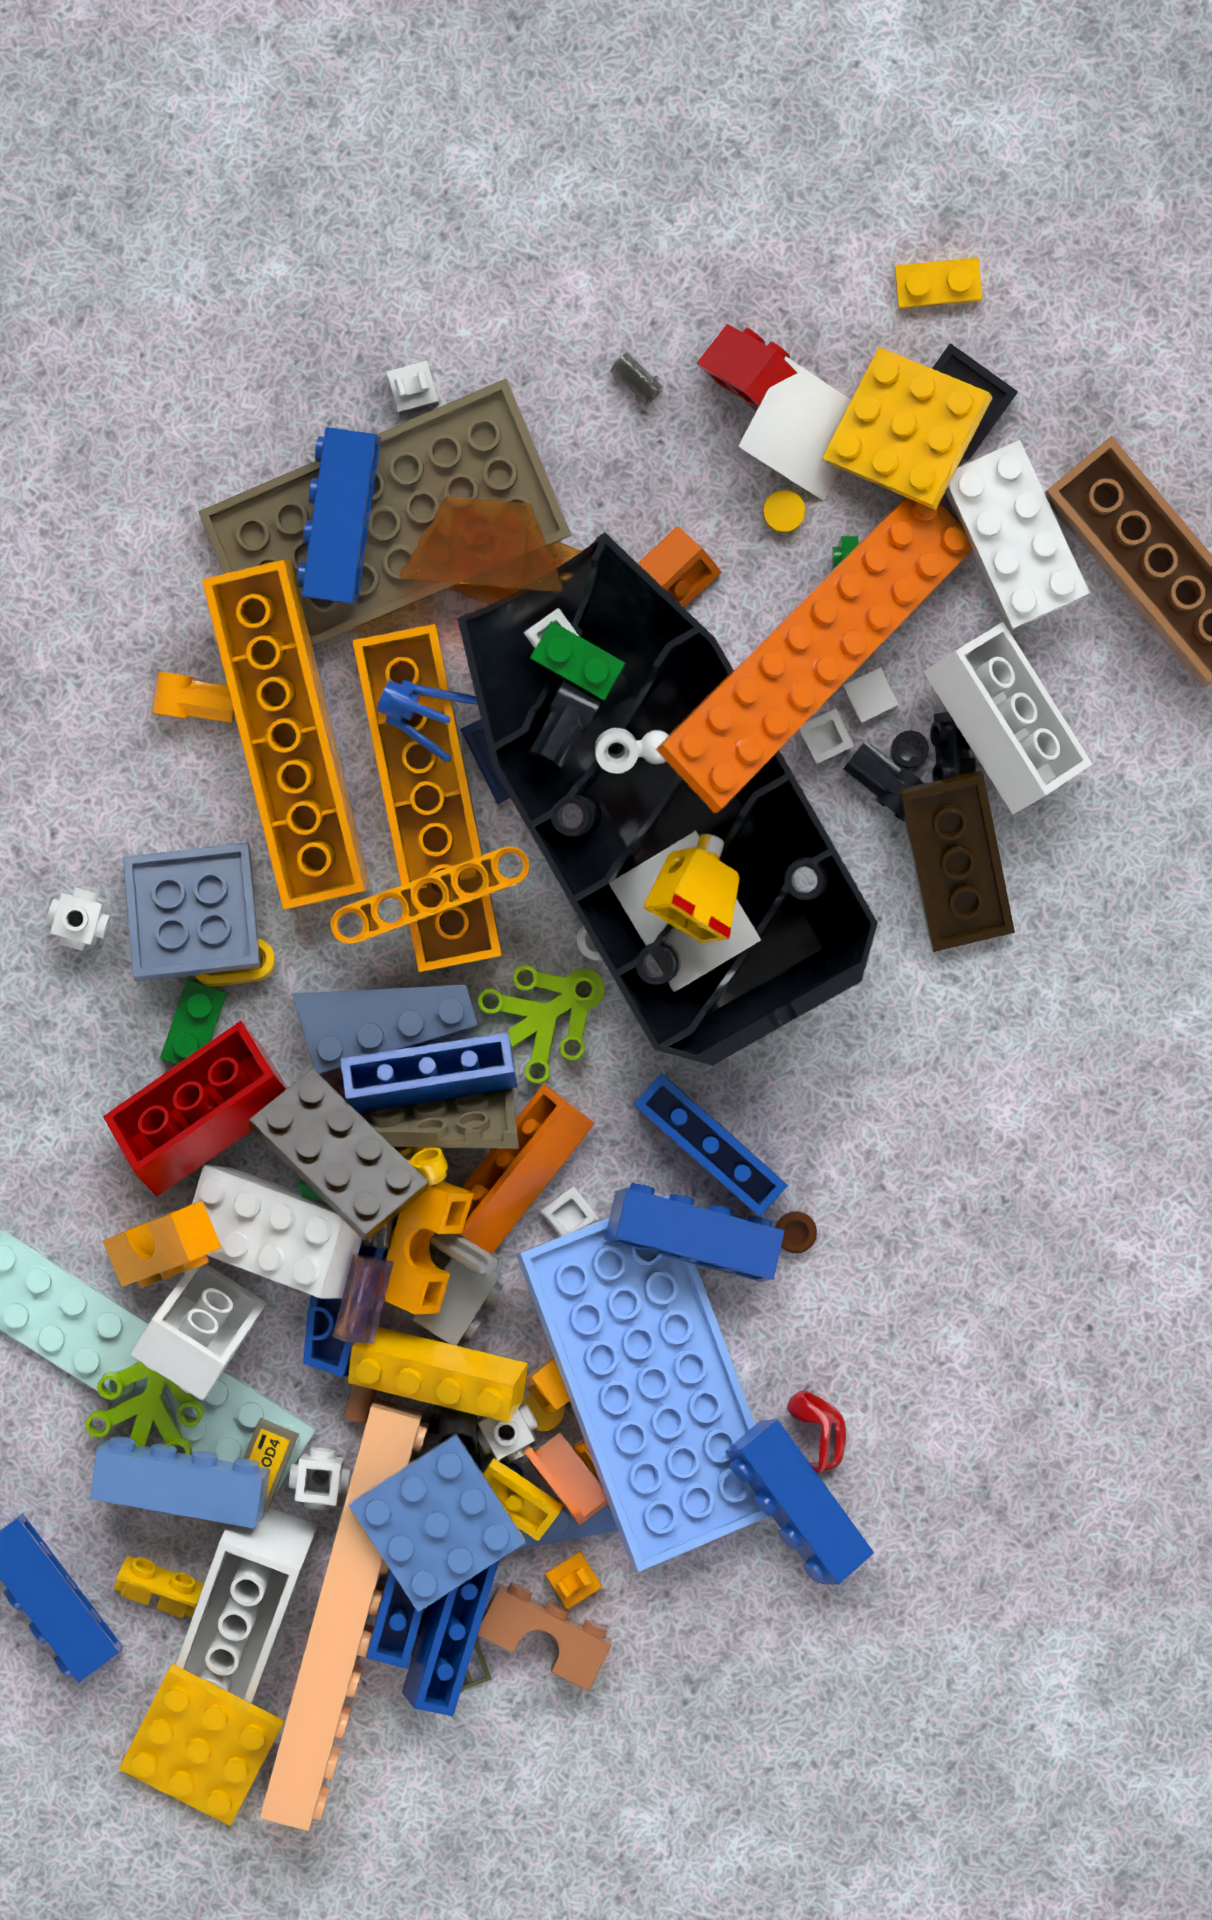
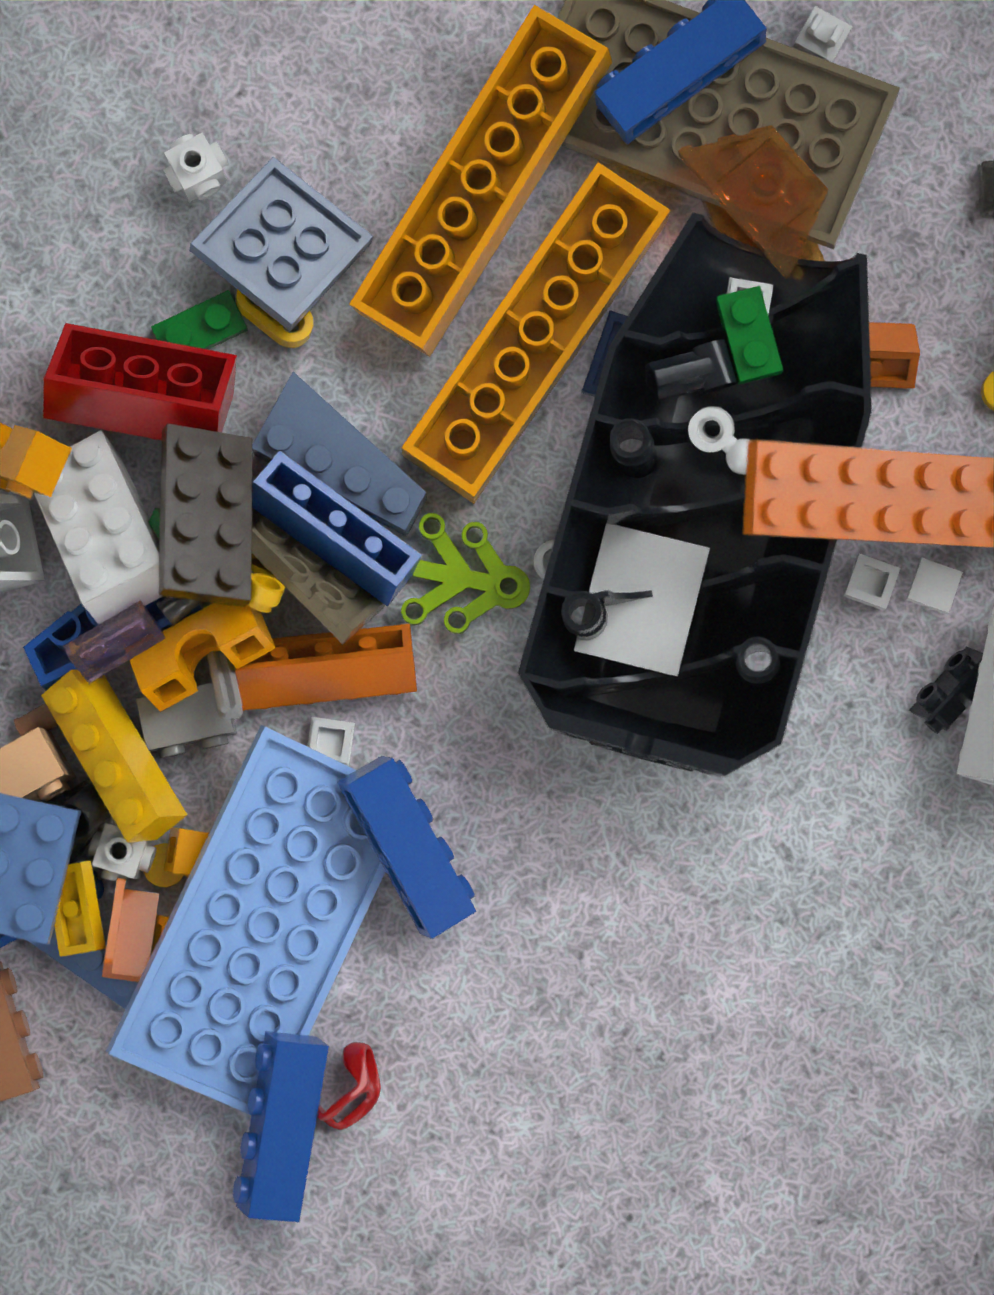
camera: 40 degrees right, 5 degrees down
(186, 698) = (436, 92): light orange piece -> none
(400, 702) = (590, 240): blue plant -> none
(409, 895) = (455, 379): light orange beam -> none
(573, 1579) = (57, 1014): light orange tile -> none
(696, 891) = (666, 589): yellow torso -> none
(710, 1144) = (486, 791): blue brick -> none
(799, 1231) = (484, 925): reddish brown tile -> none
(881, 777) = (884, 664): black piece -> none
(905, 737) = (928, 641): black bush -> none
(957, 861) = (879, 767): dark brown plate -> none

